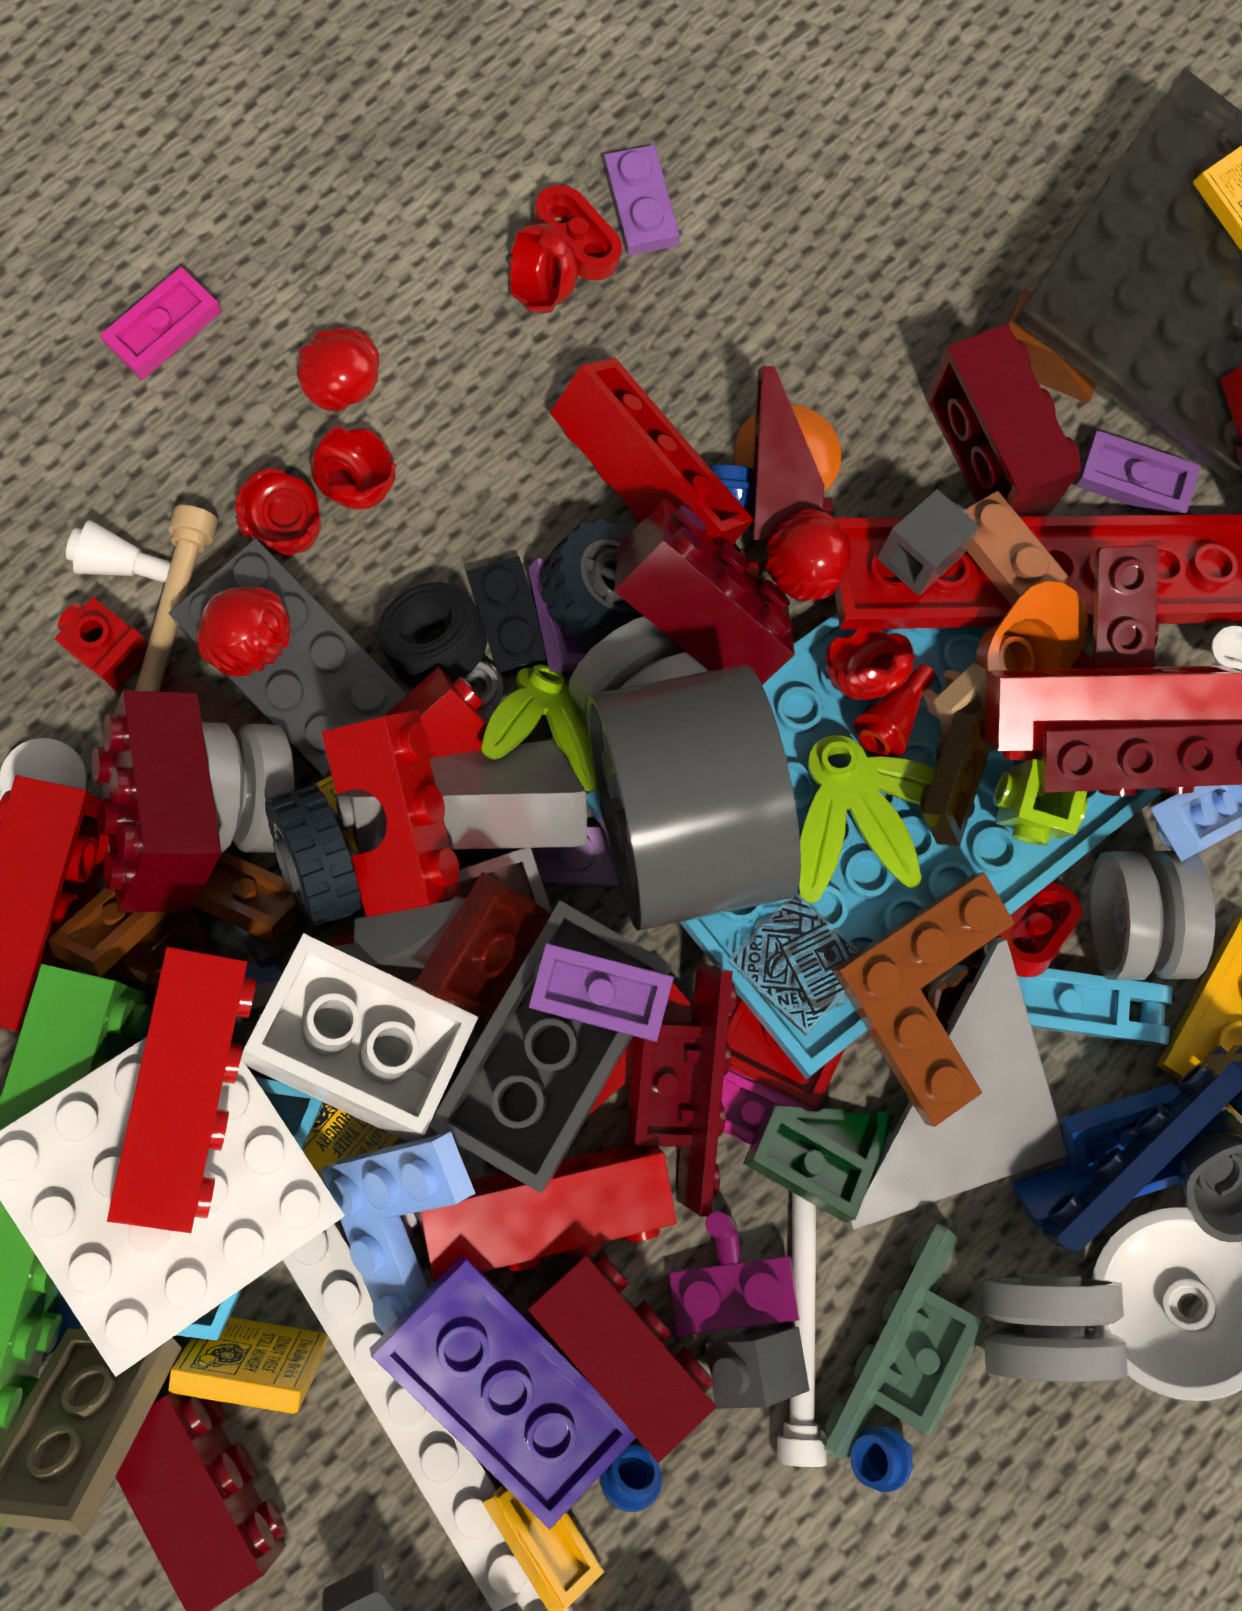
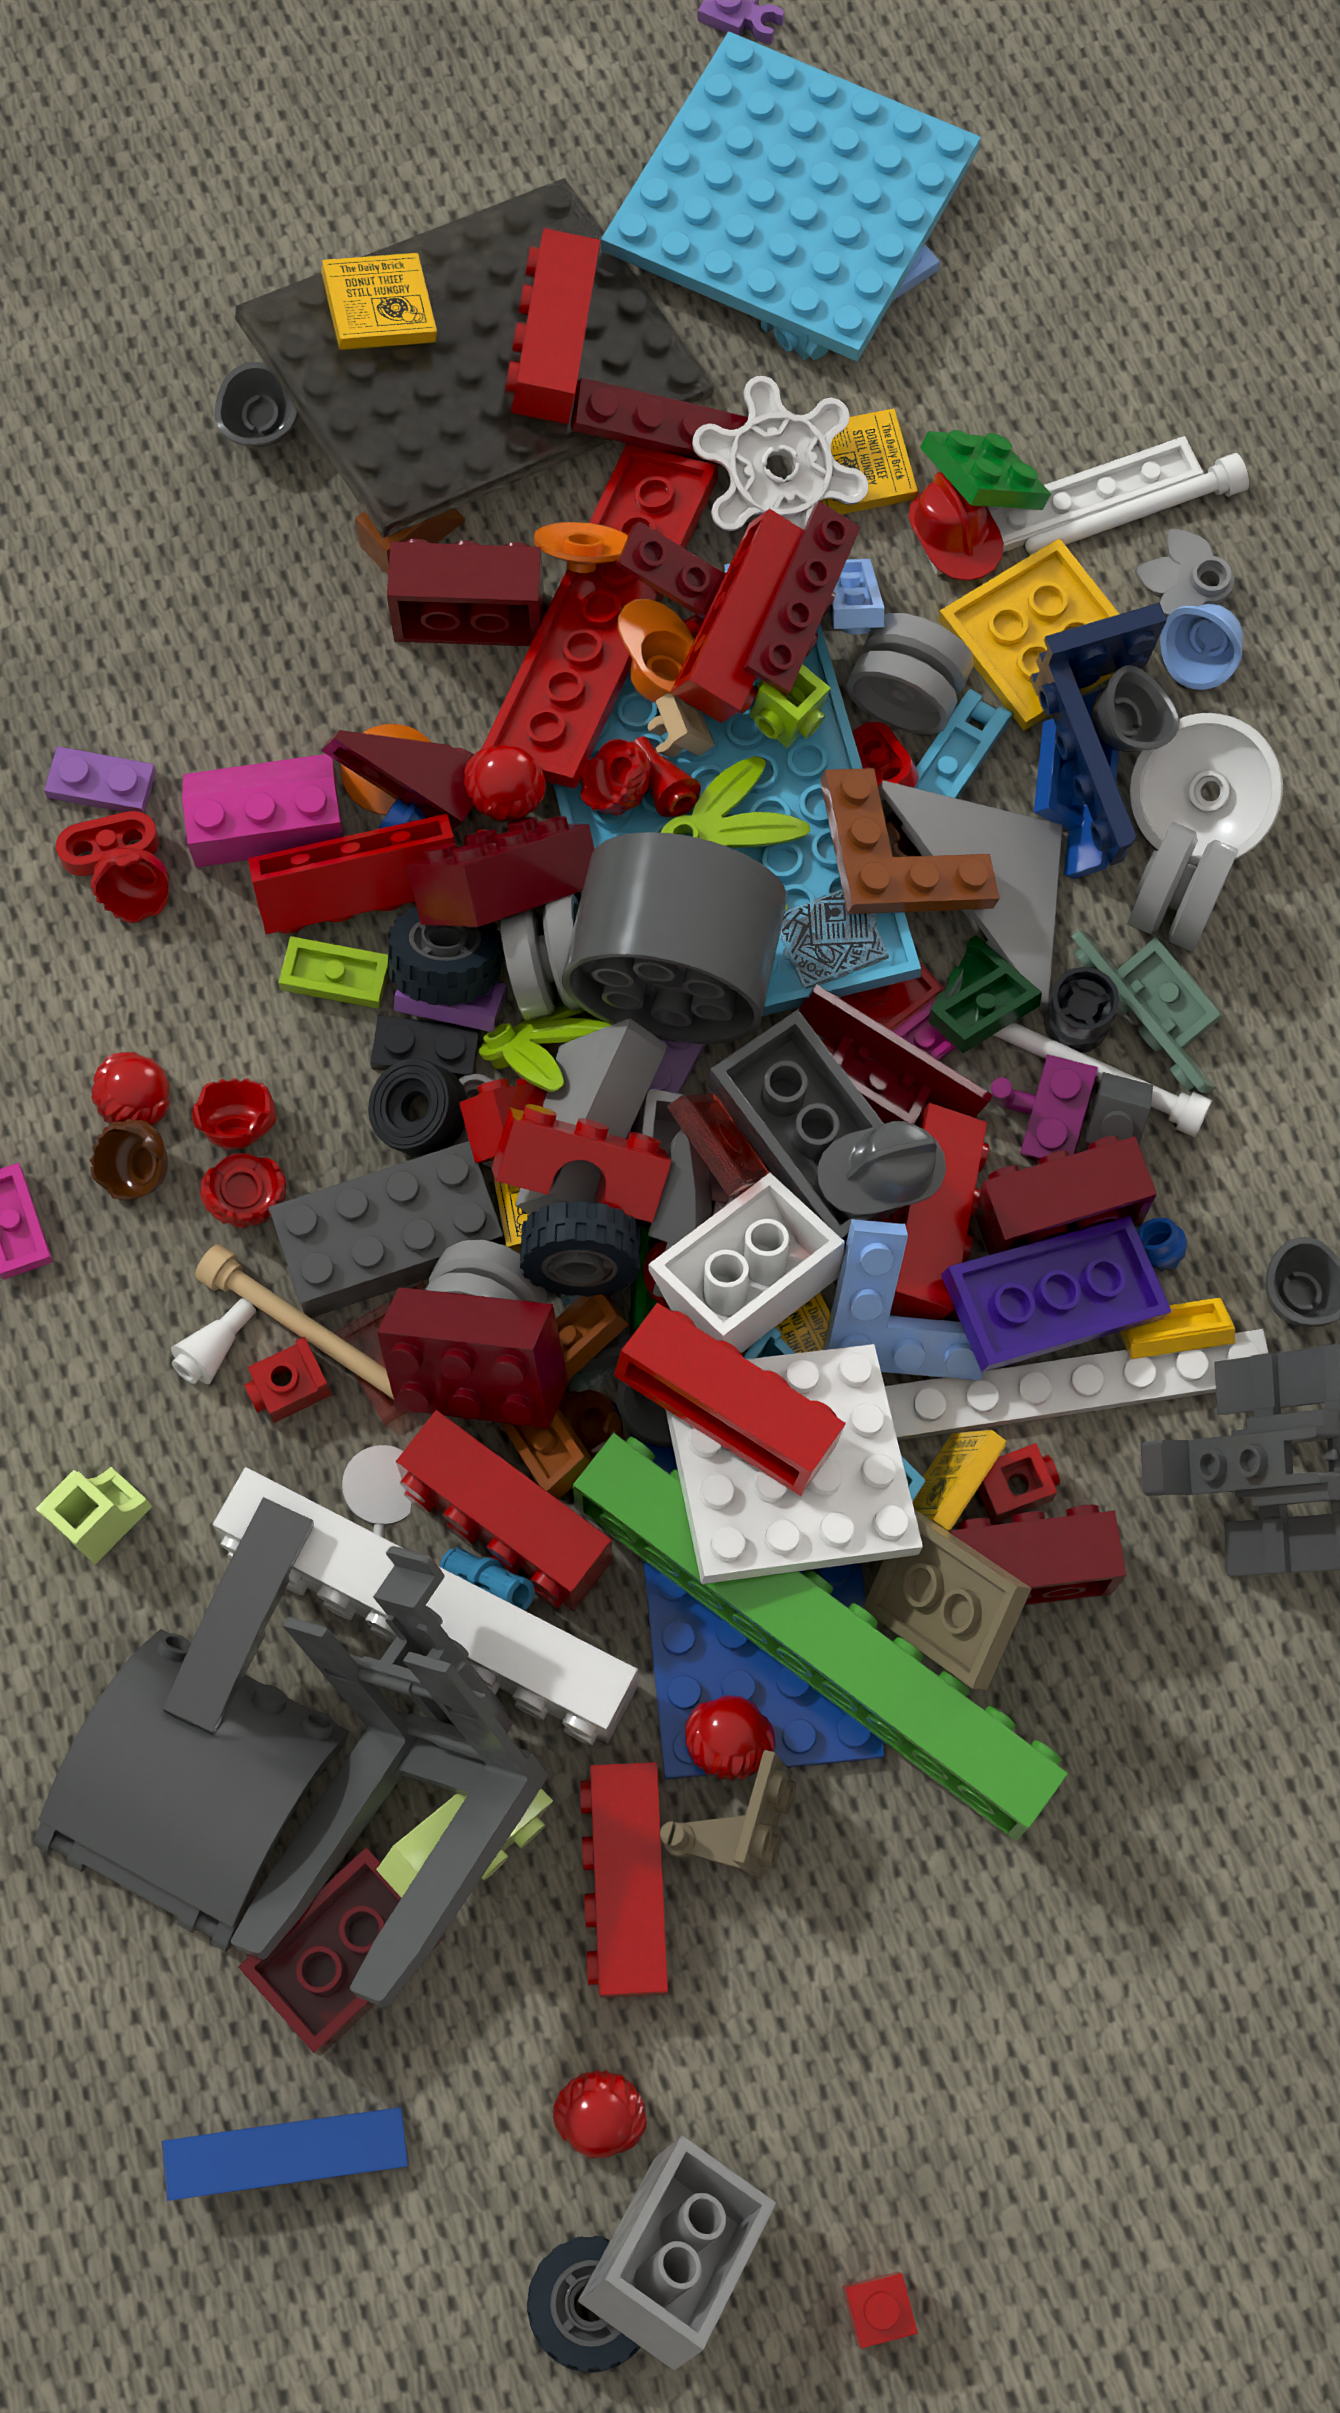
camera: 60 degrees left, 5 degrees down
(243, 630) = (353, 1239): red hair -> none
(263, 397) = (129, 1159): none -> reddish brown hair
(266, 1436) = (1030, 1466): none -> red brick
(529, 1139) = (881, 1168): none -> dark grey piece
(543, 493) = (334, 972): none -> lime plate
(601, 992) = (798, 1063): medium lavender plate -> none
(679, 350) = (260, 809): none -> dark pink slope
(859, 1272) = (1081, 1009): none -> black wheel
(882, 1458) = (1224, 1057): blue plate -> none
(928, 541) = (542, 686): dark grey brick -> none
(959, 769) = (729, 747): dark brown plate -> none
(1009, 549) = (572, 635): nougat plate -> none
(1090, 146) = (253, 407): none -> dark grey helmet
(1110, 508) = (580, 544): none -> orange dish
(1138, 475) = (559, 499): medium lavender plate -> none

